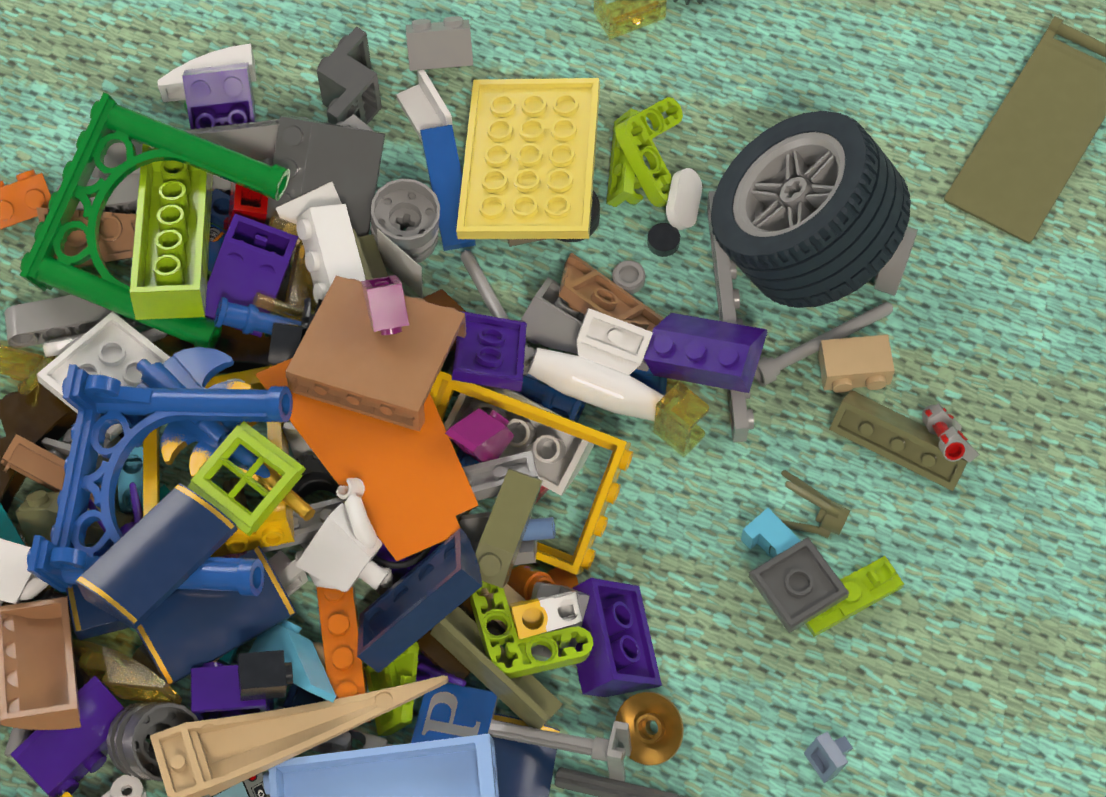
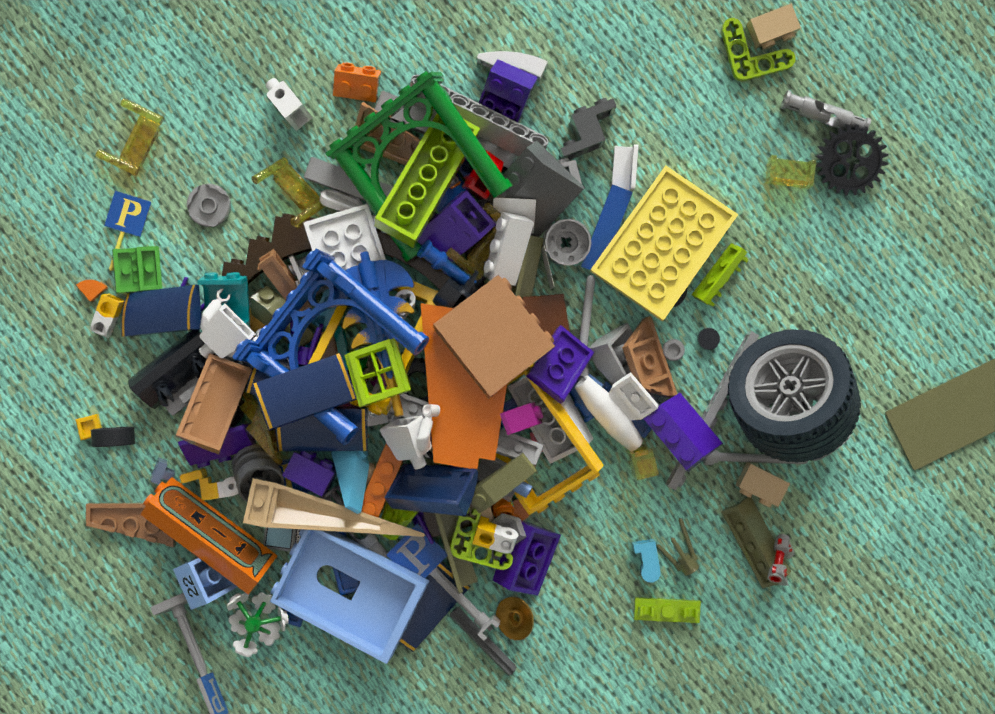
camera: 30 degrees right, 25 degrees up
(263, 675) = (327, 484): black brick -> none
(385, 304) = (512, 316): slope -> none
(439, 43) = (657, 136): light grey slope -> none
(635, 133) = (732, 271): lime beam -> none
(684, 199) = (736, 322): white tile -> none
(798, 584) = (641, 595): dark grey tile -> none
(828, 755) = (596, 689): sand blue tile -> none

